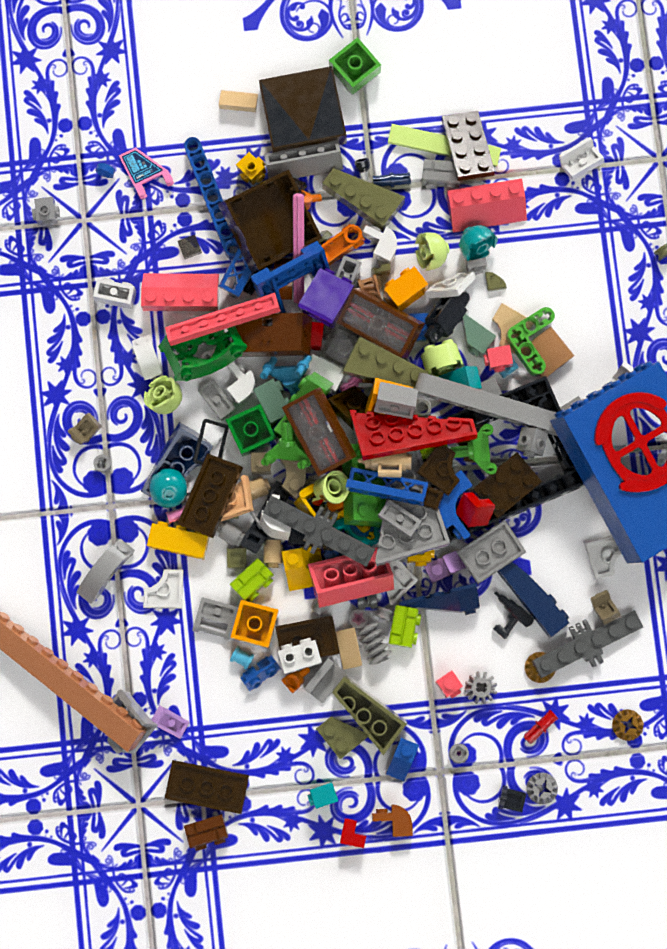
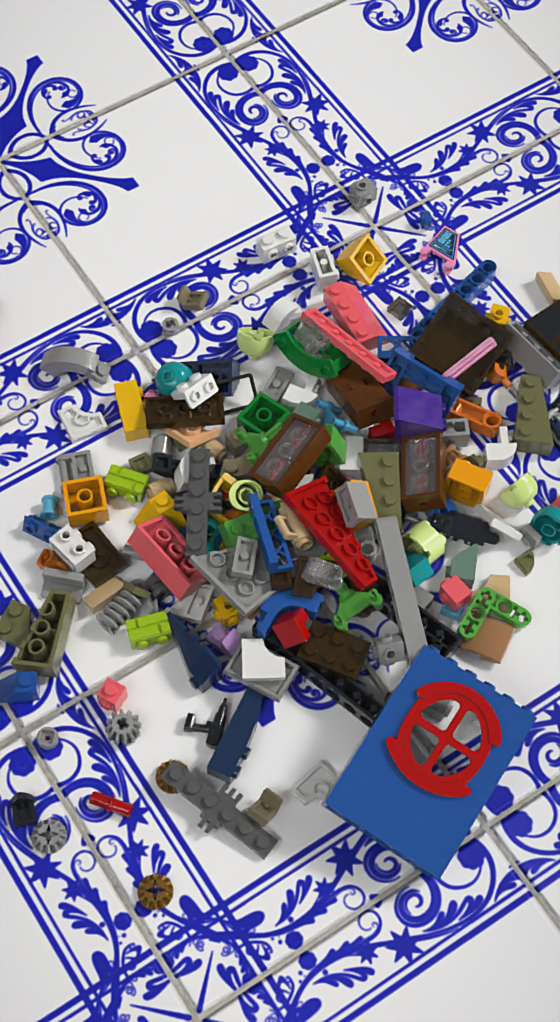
camera: 60 degrees right, 20 degrees down
(63, 322) = (275, 244): none -> white brick
(121, 253) = (362, 259): none -> yellow slope
(195, 476) = (196, 389): none -> white bracket
(196, 347) = (309, 336): none -> clear piece
(364, 620) = (136, 590): none -> olive tile
(445, 464) = (322, 573): none -> clear piece
(488, 551) = (259, 663): none -> white tile

